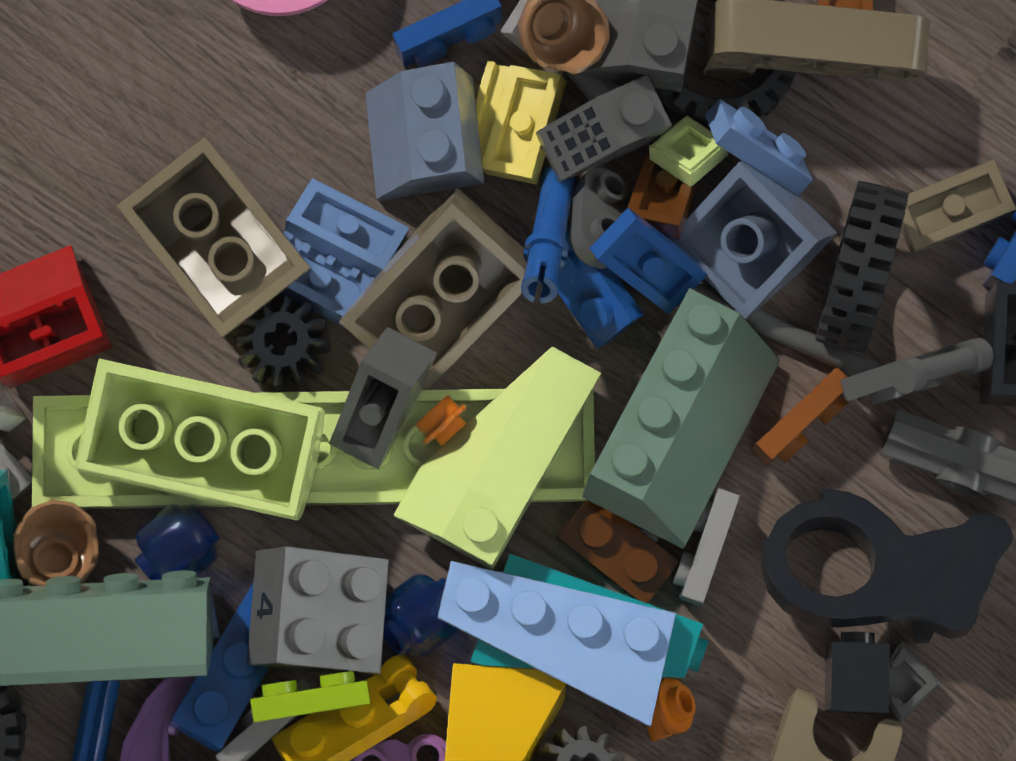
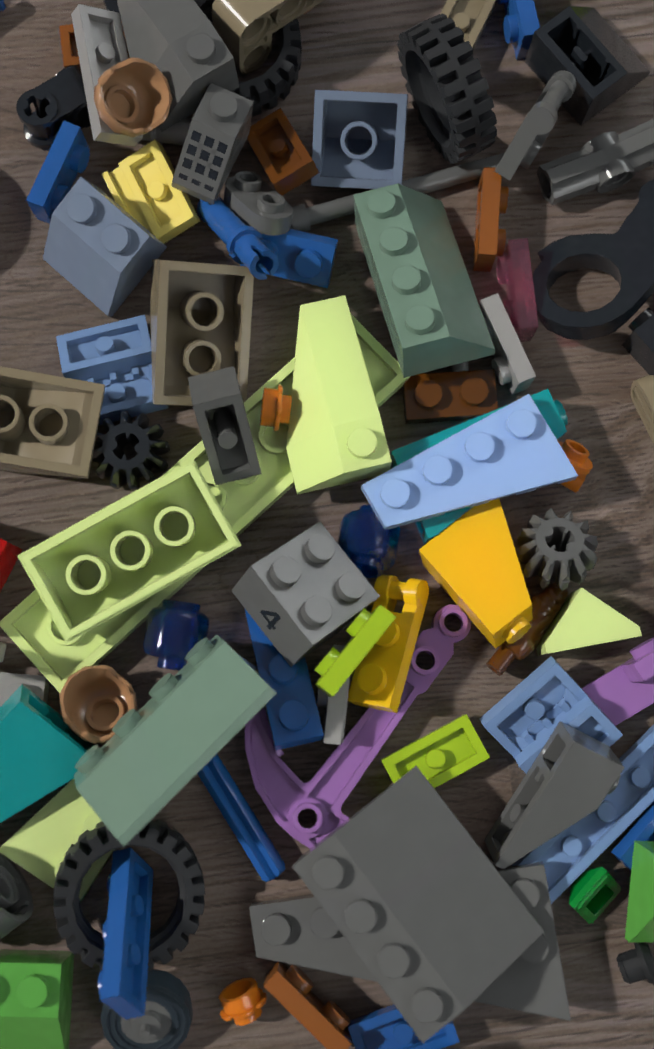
camera: 45 degrees left, 0 degrees up
(648, 260) = (312, 197): blue plate -> none
(687, 151) = (275, 118): yellowish green tile -> none
(748, 139) = (299, 74): medium blue plate -> none
(752, 527) = (516, 273): none -> clear pink plate

